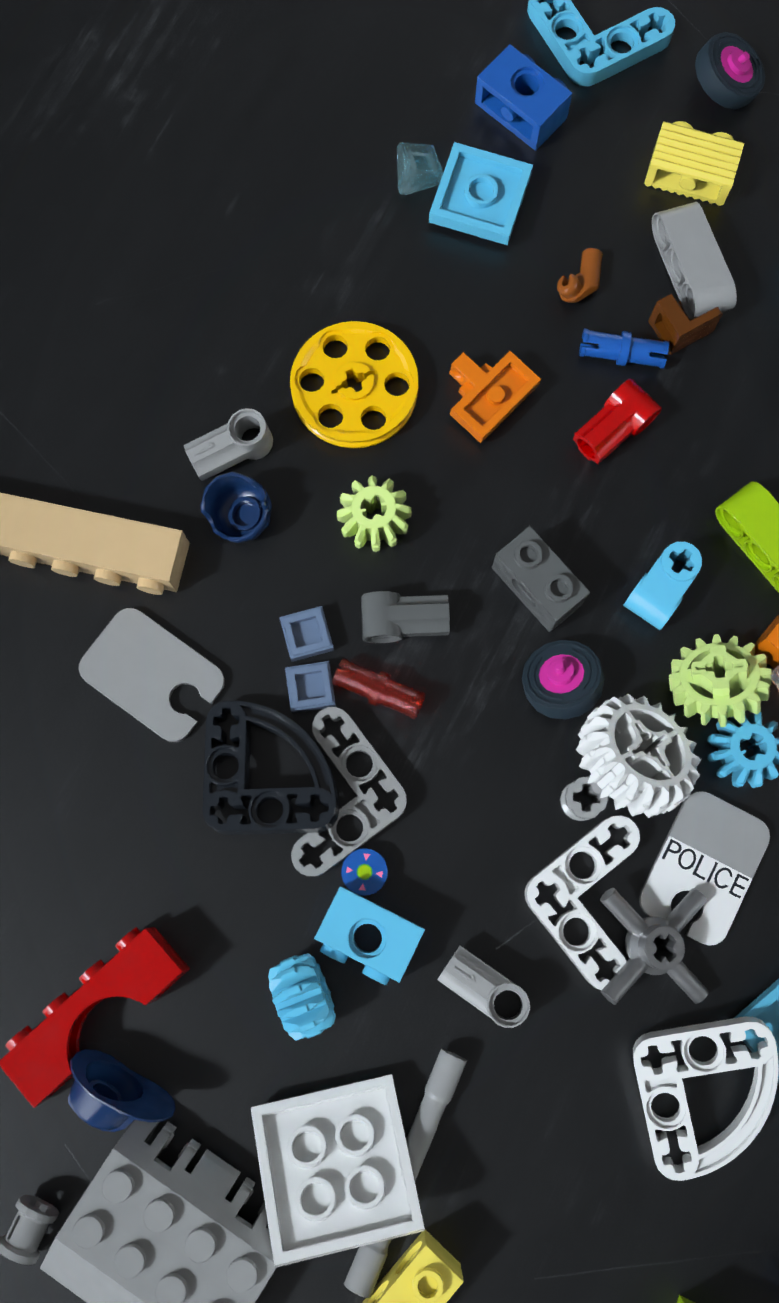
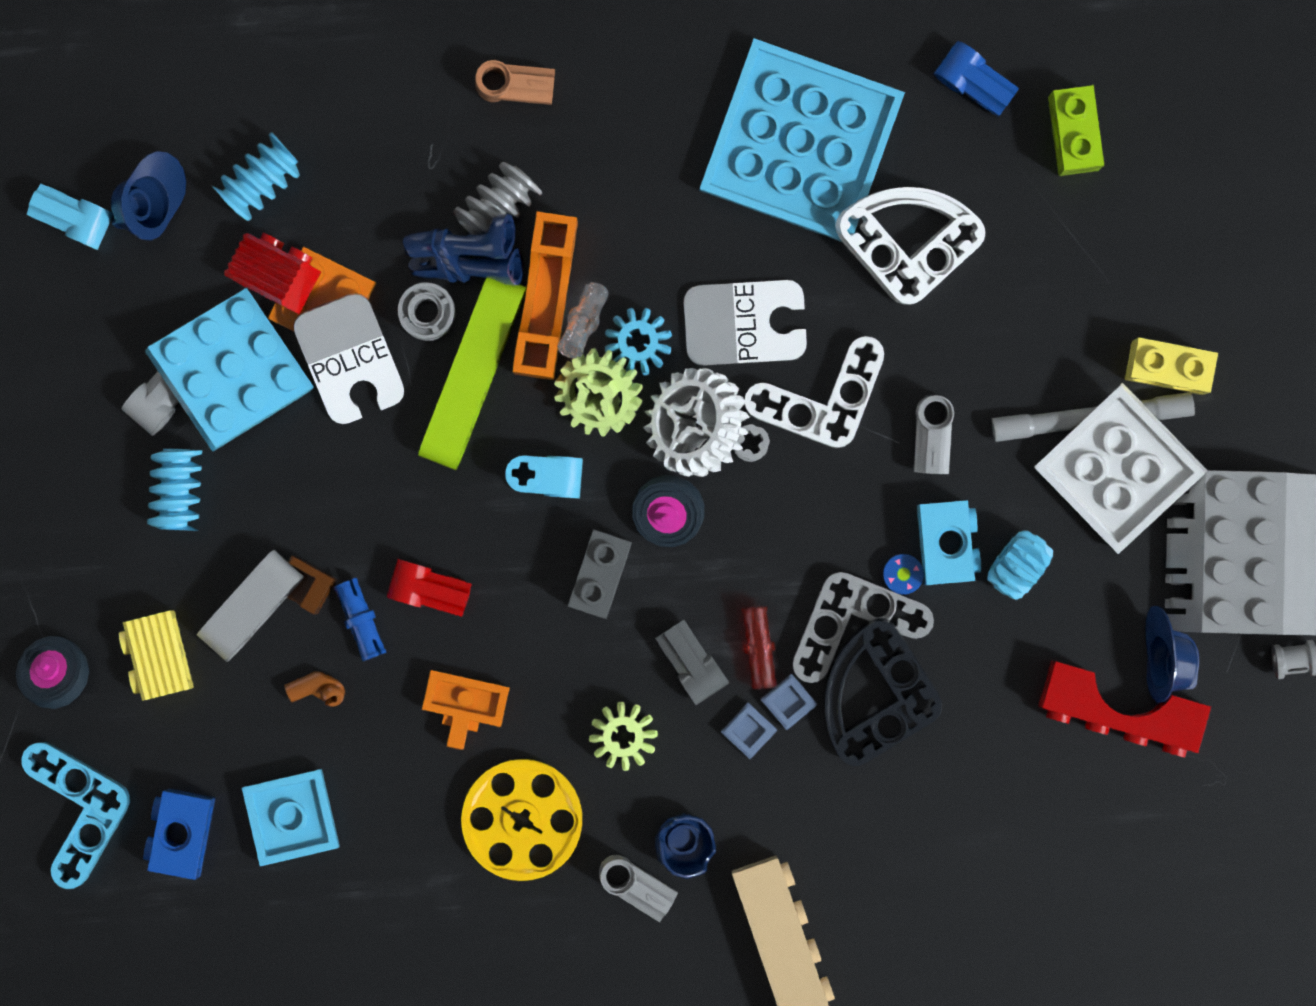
camera: 120 degrees left, 10 degrees up
(140, 668) = (849, 842): light grey piece -> none
(417, 167) = (294, 885): clear light blue slope -> none
(654, 946) = (837, 339): flat silver bar -> none

